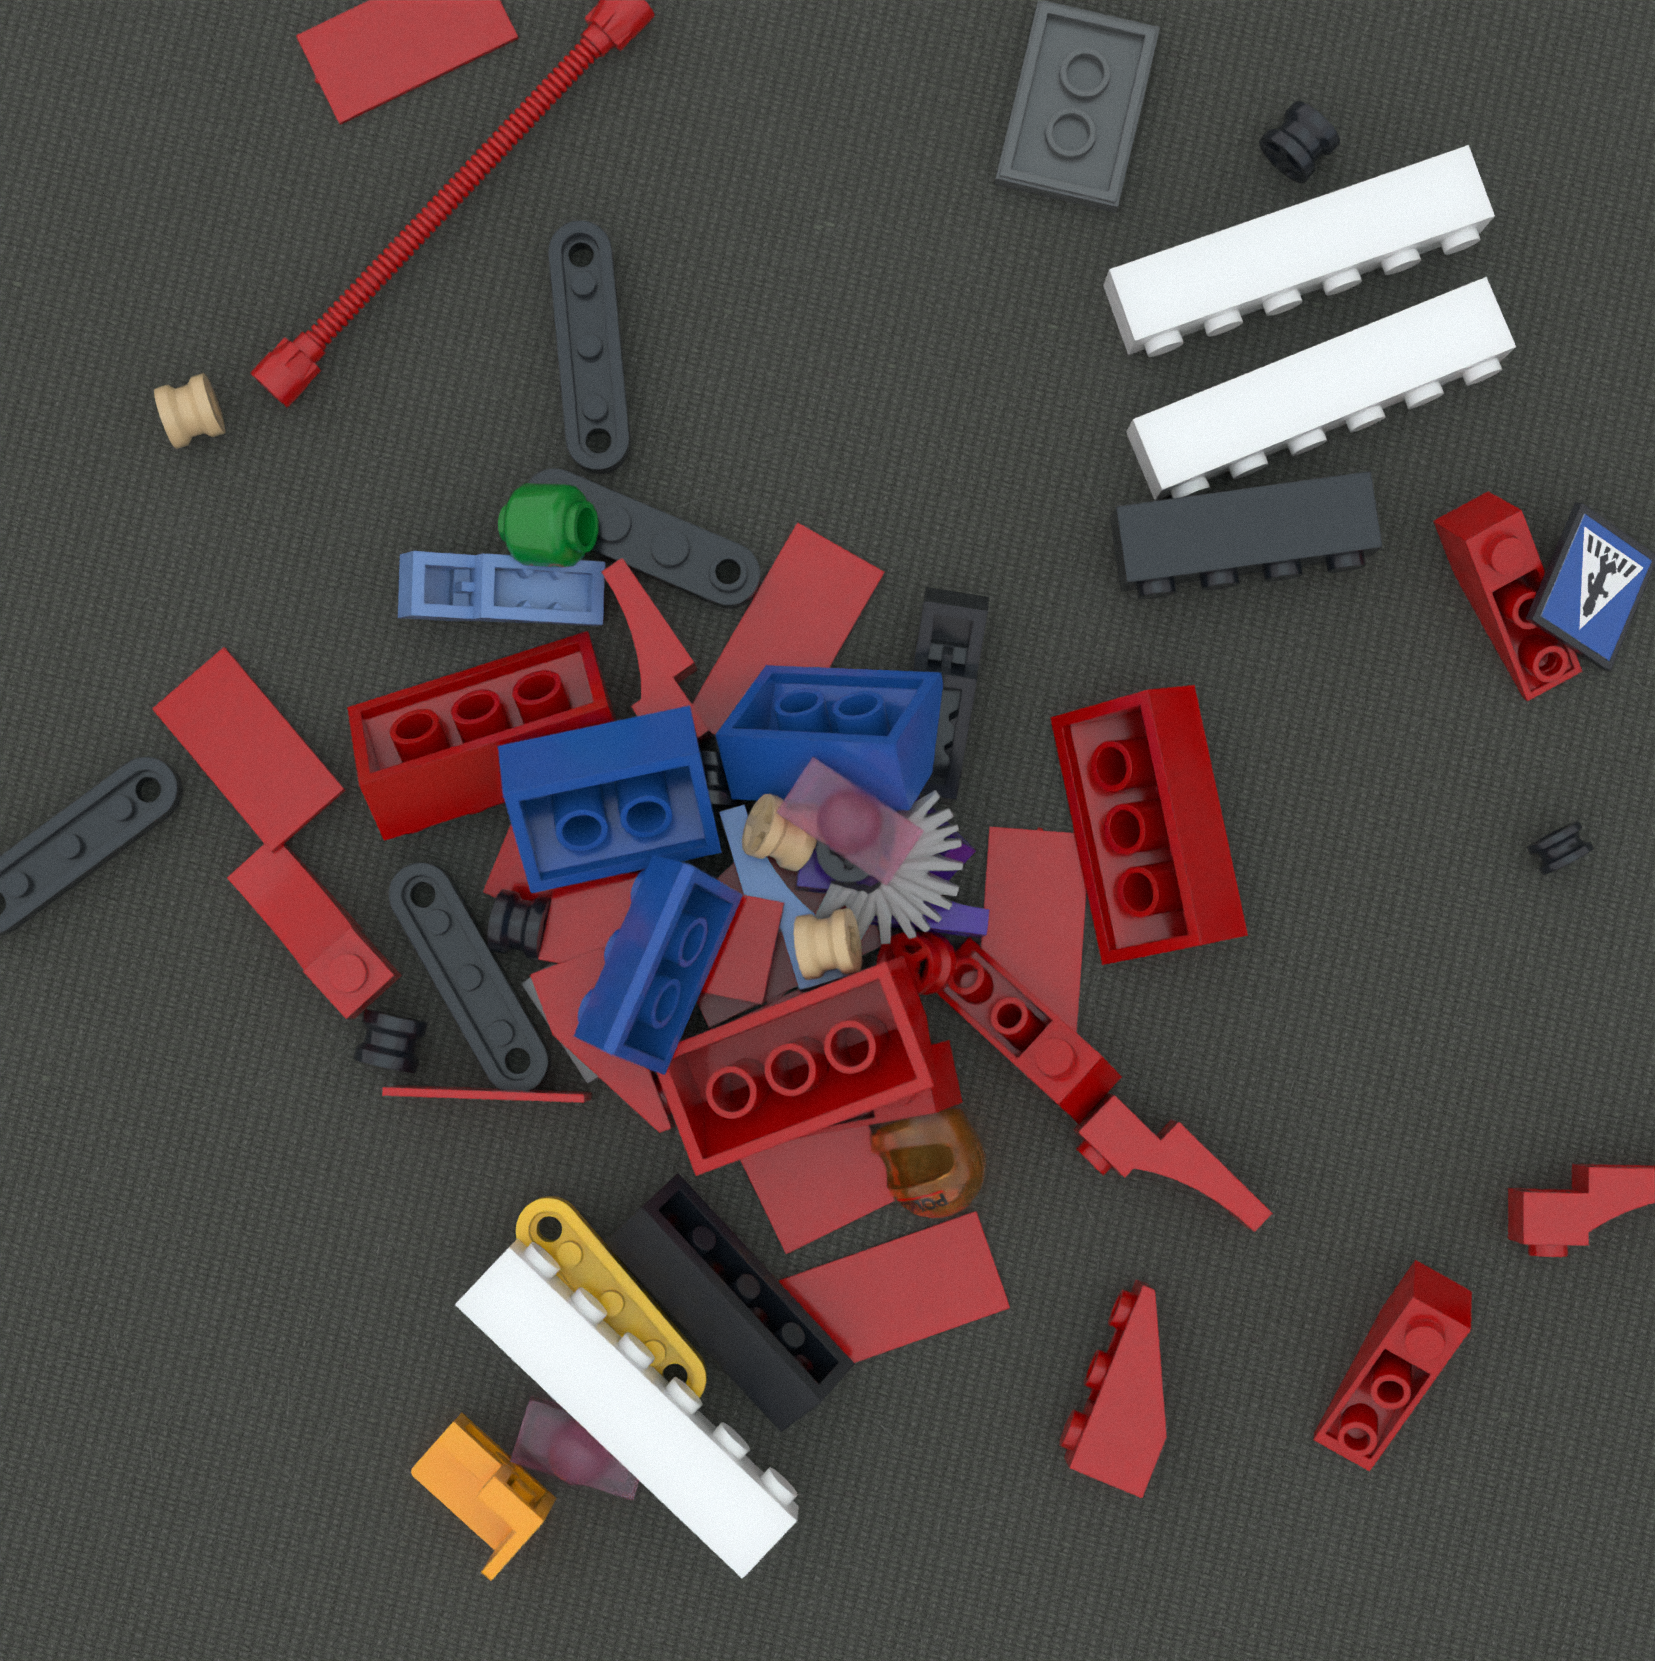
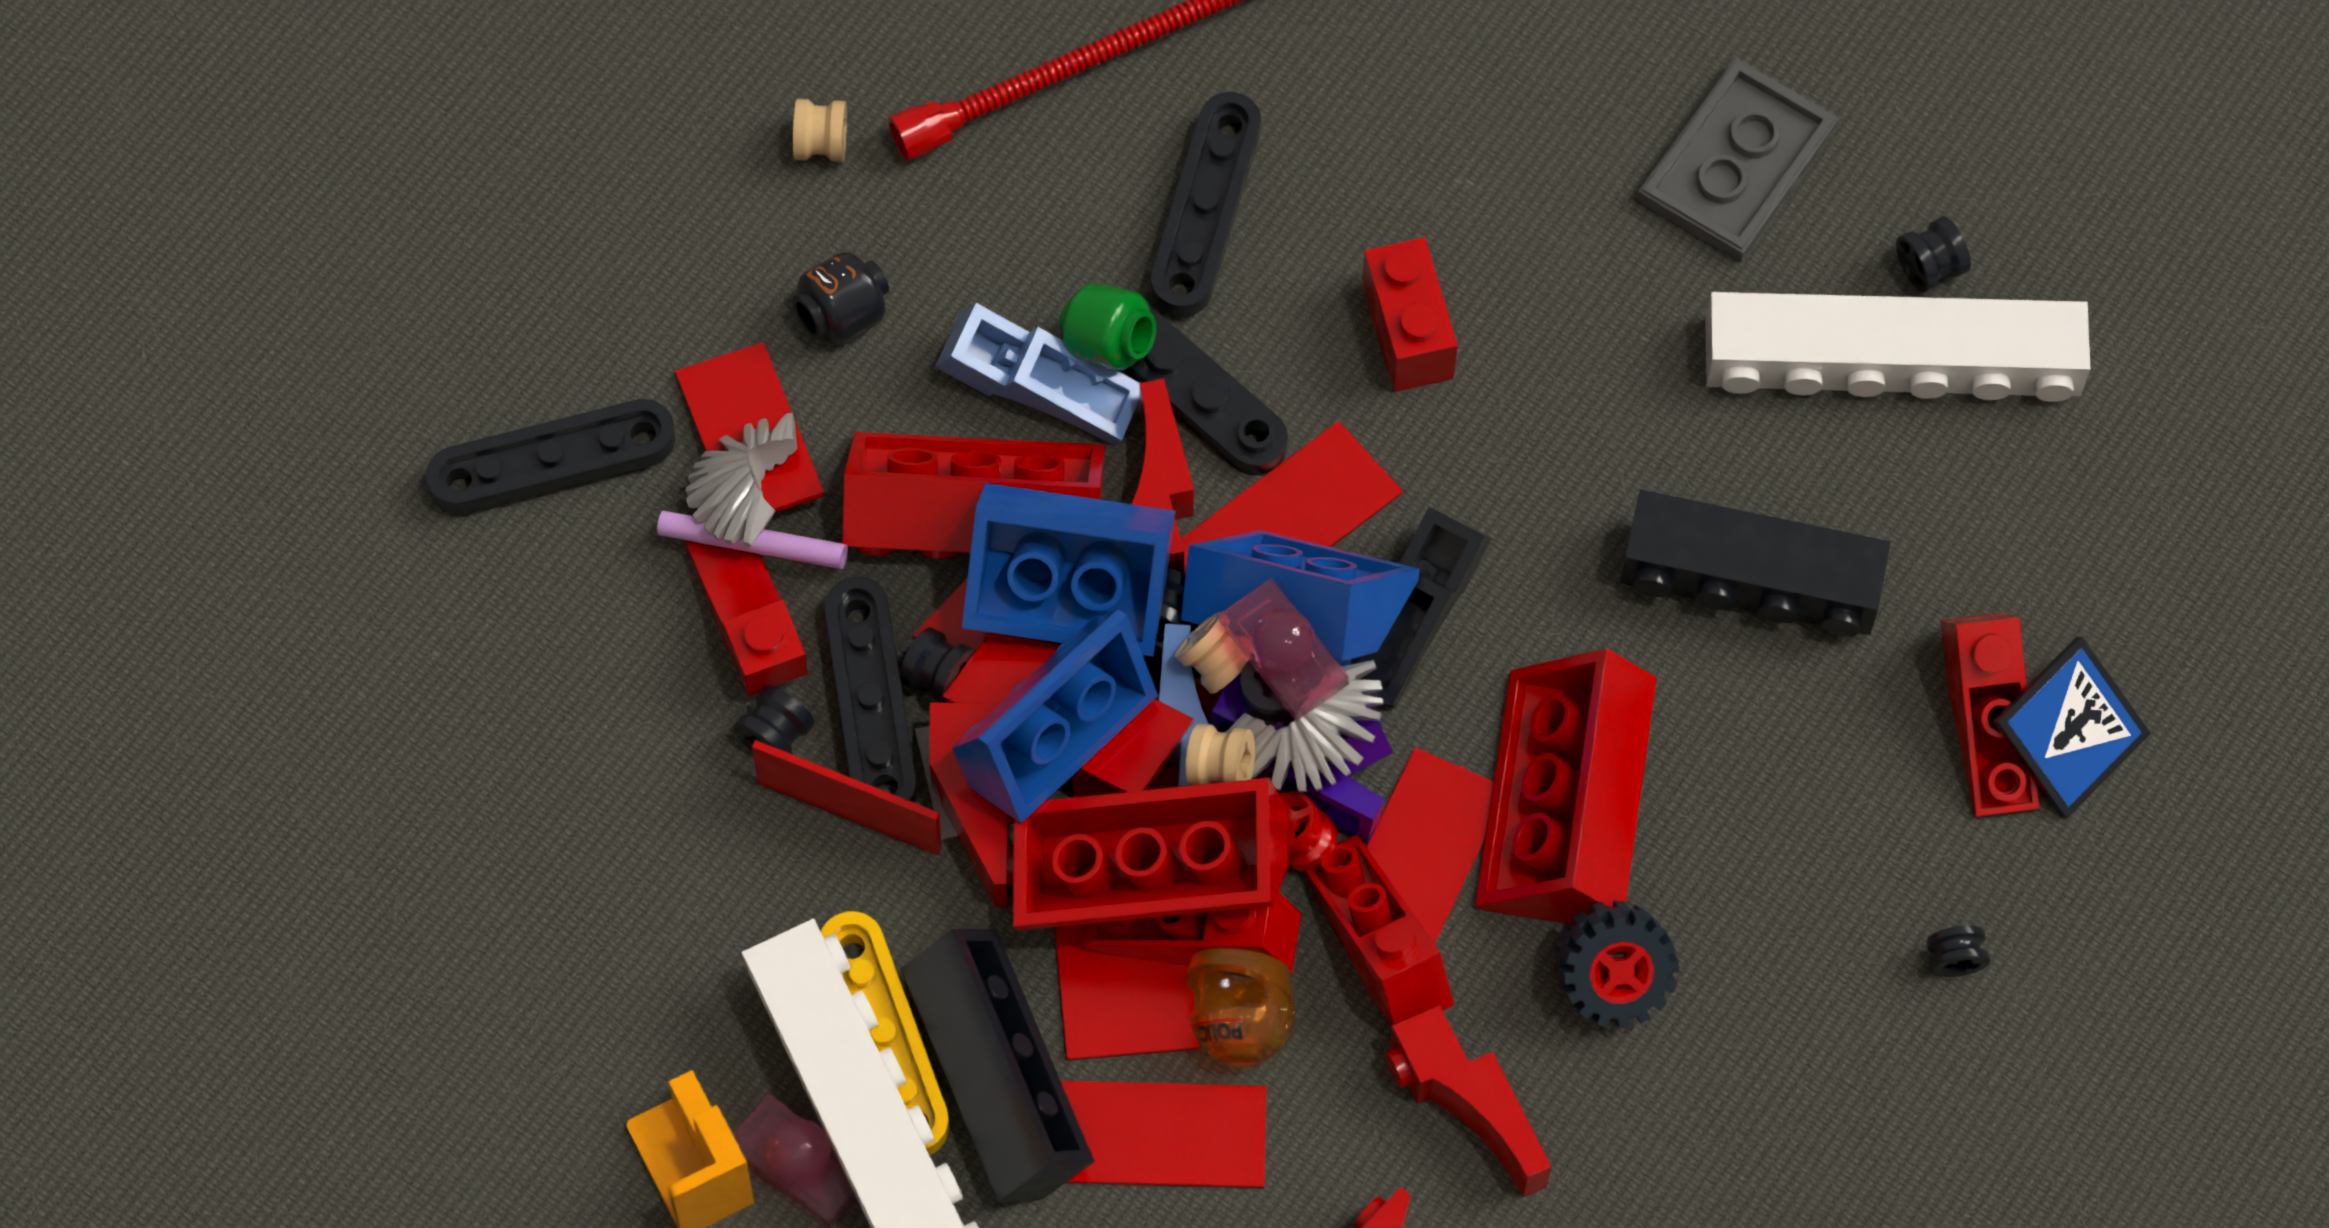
camera: 20 degrees right, 20 degrees down
(254, 818) = (729, 481): none -> light grey hair
(280, 582) = (841, 298): none -> black head
(296, 866) = (767, 543): none -> lavender piece
(827, 394) = (1409, 314): none -> red brick
(1259, 989) = (1629, 982): none -> black wheel
(1321, 390) = (1879, 468): white brick -> none

